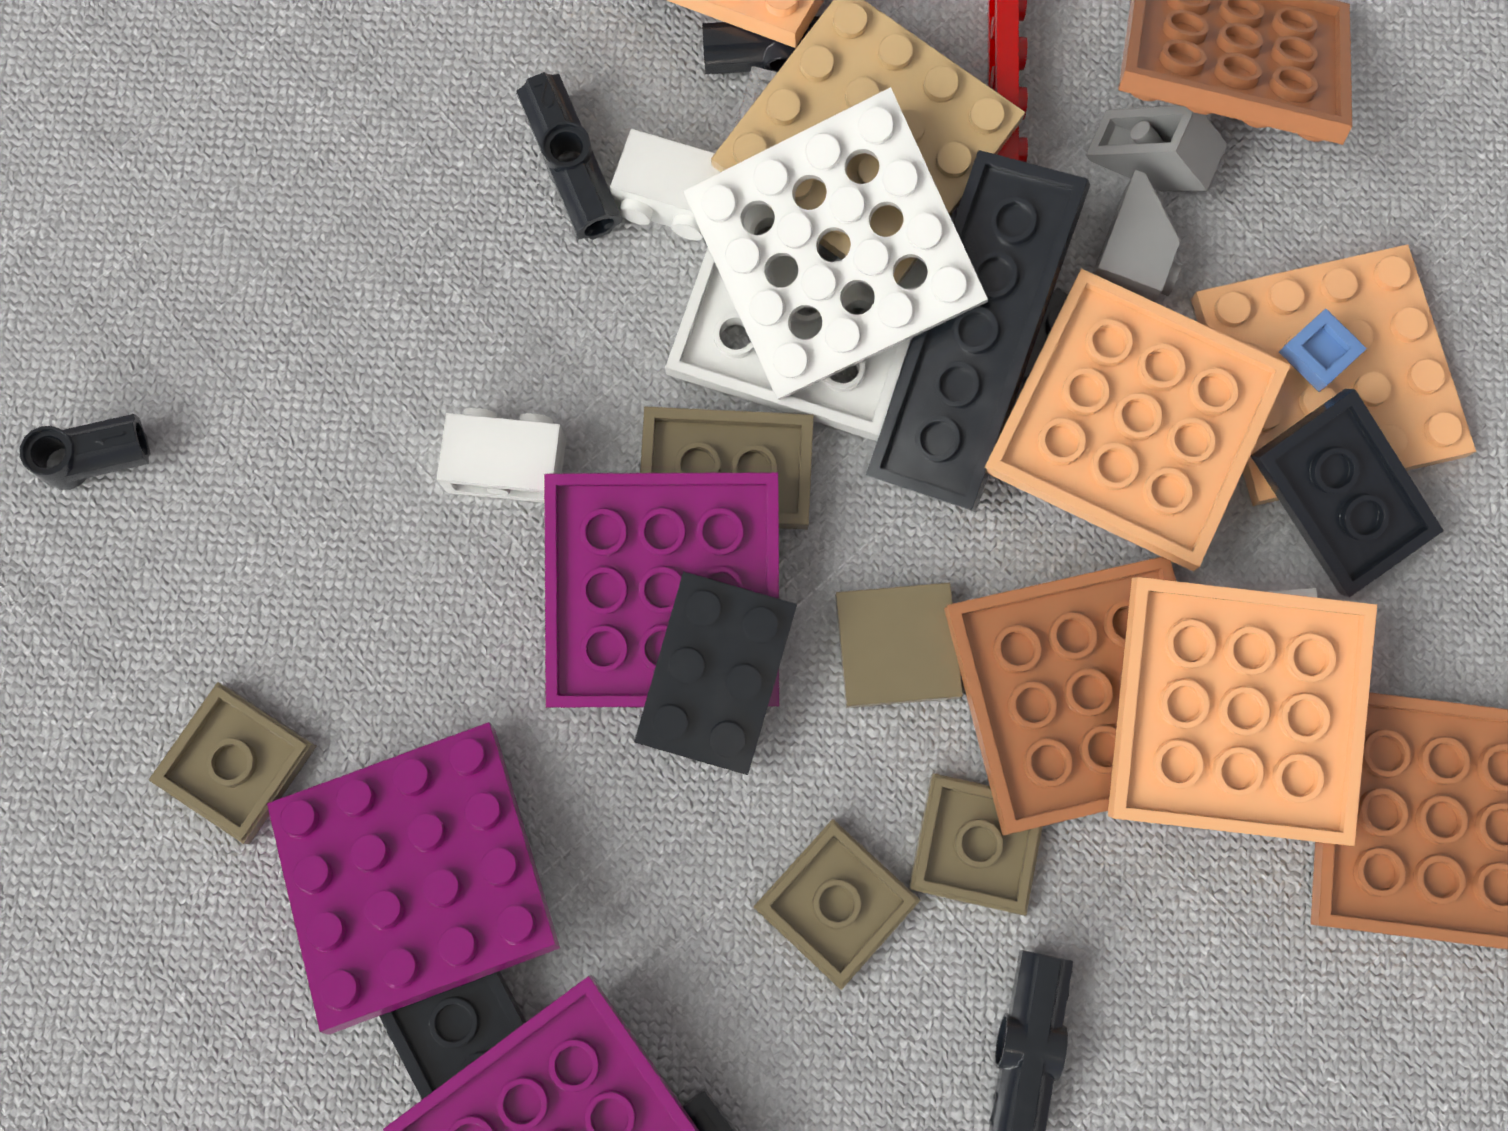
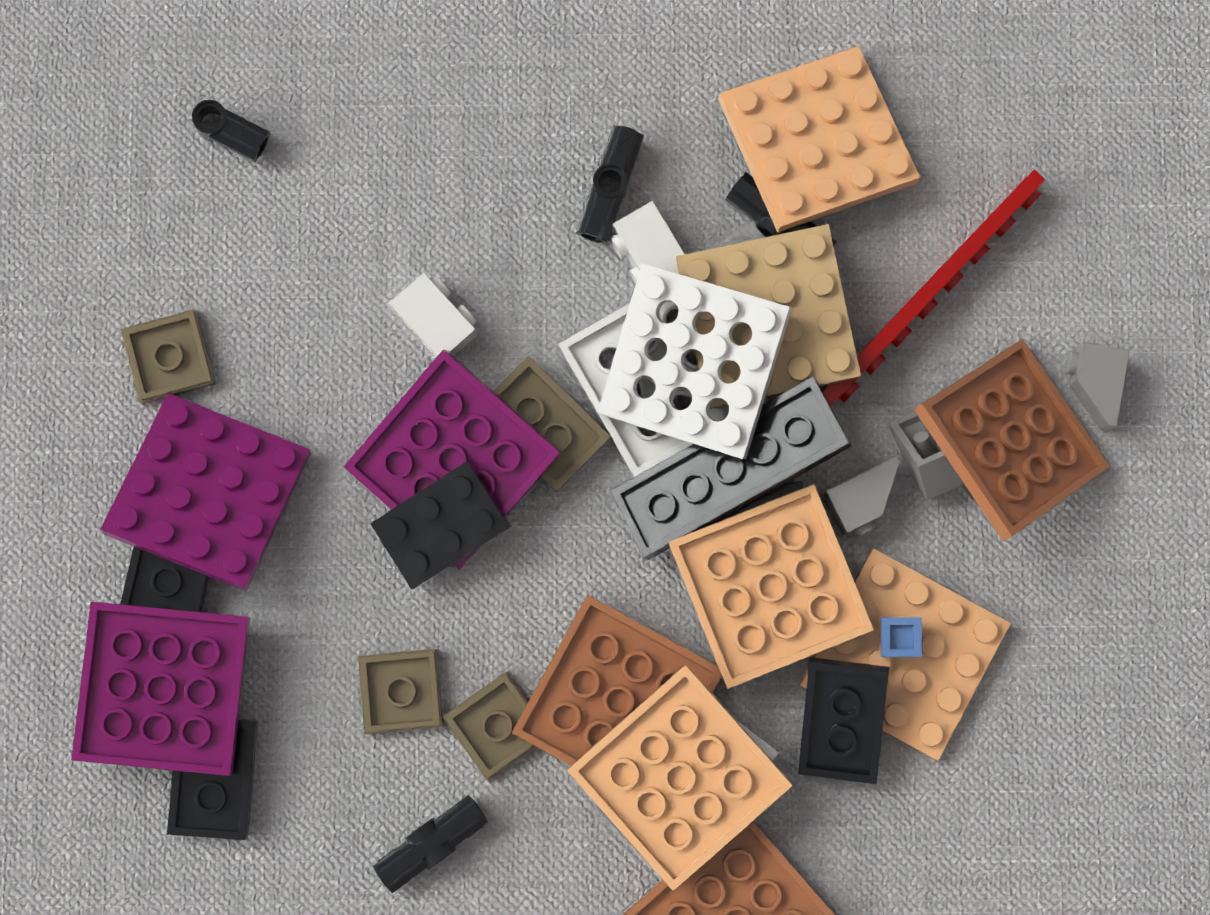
camera: 40 degrees right, 5 degrees up
(897, 645) = (547, 591): dark tan tile -> none

